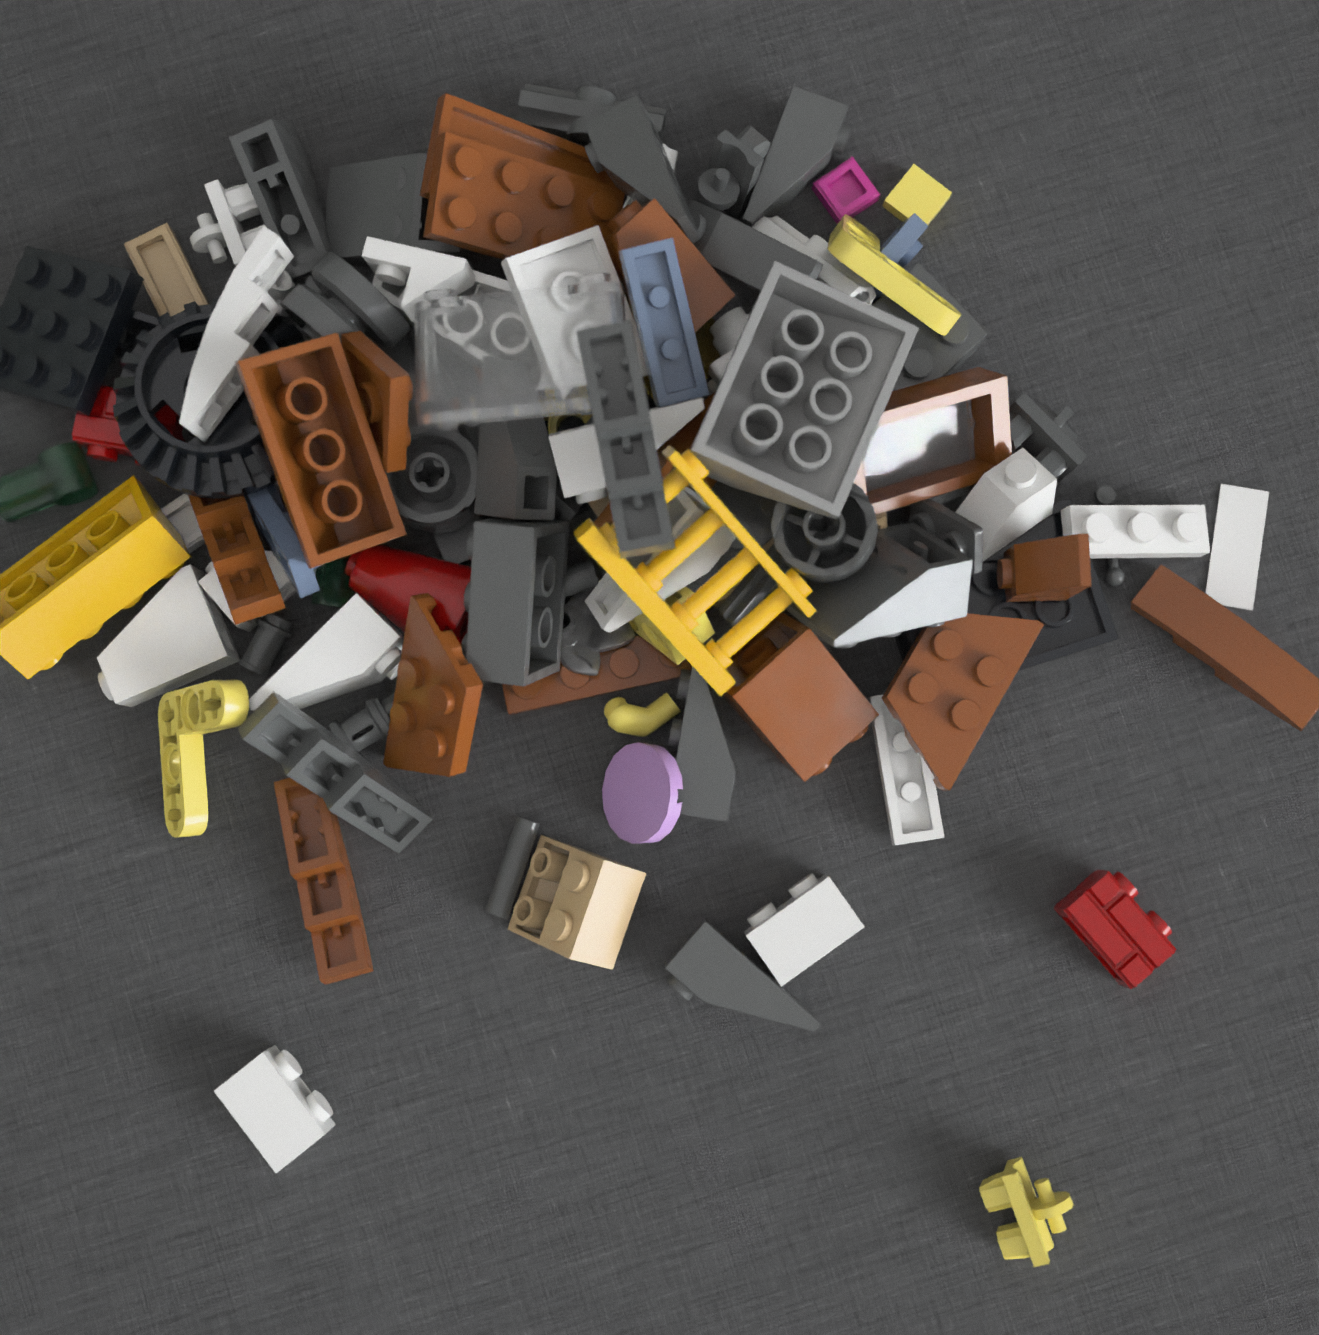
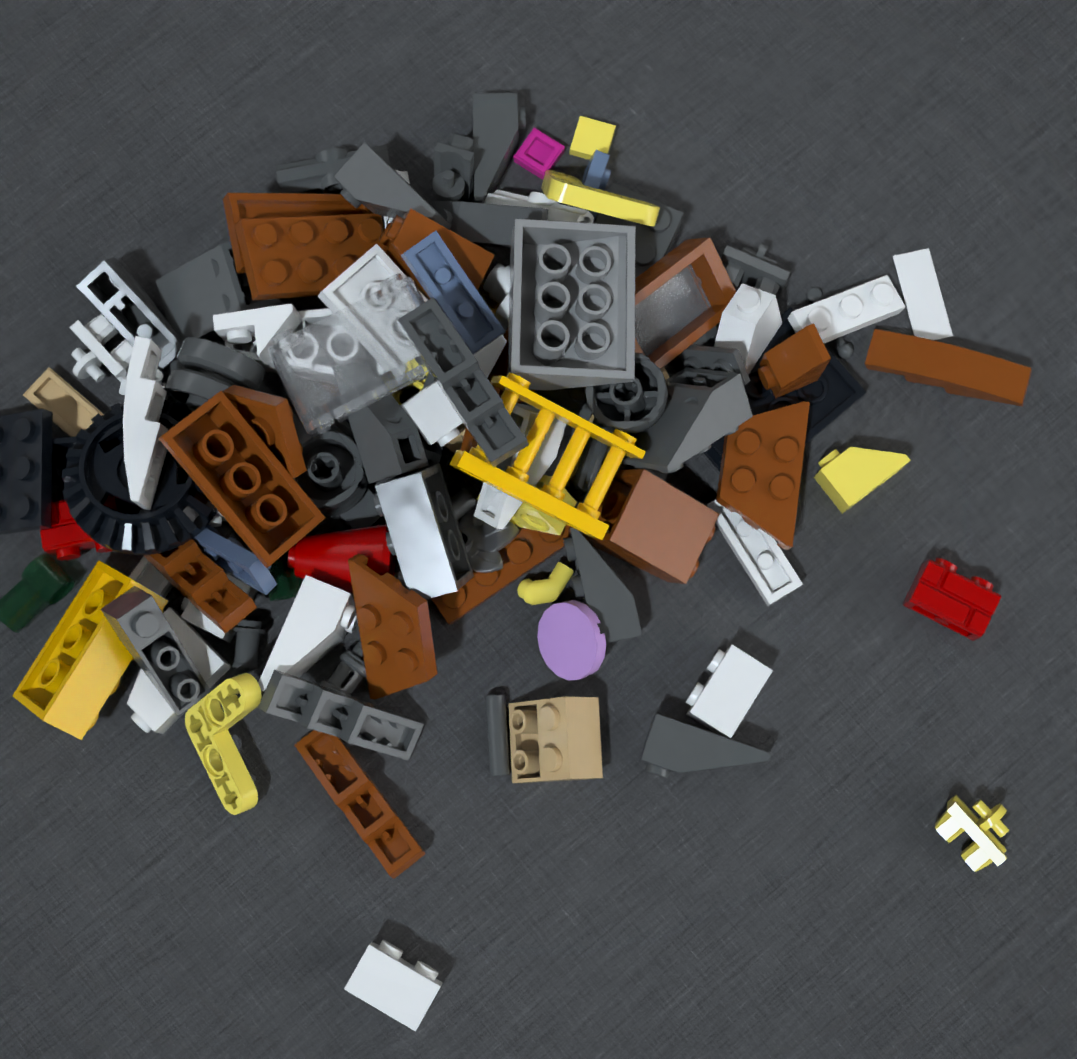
camera: 25 degrees left, 5 degrees down
(150, 610) = (156, 648): none -> dark grey slope
(1064, 731) = (856, 473): none -> light yellow slope

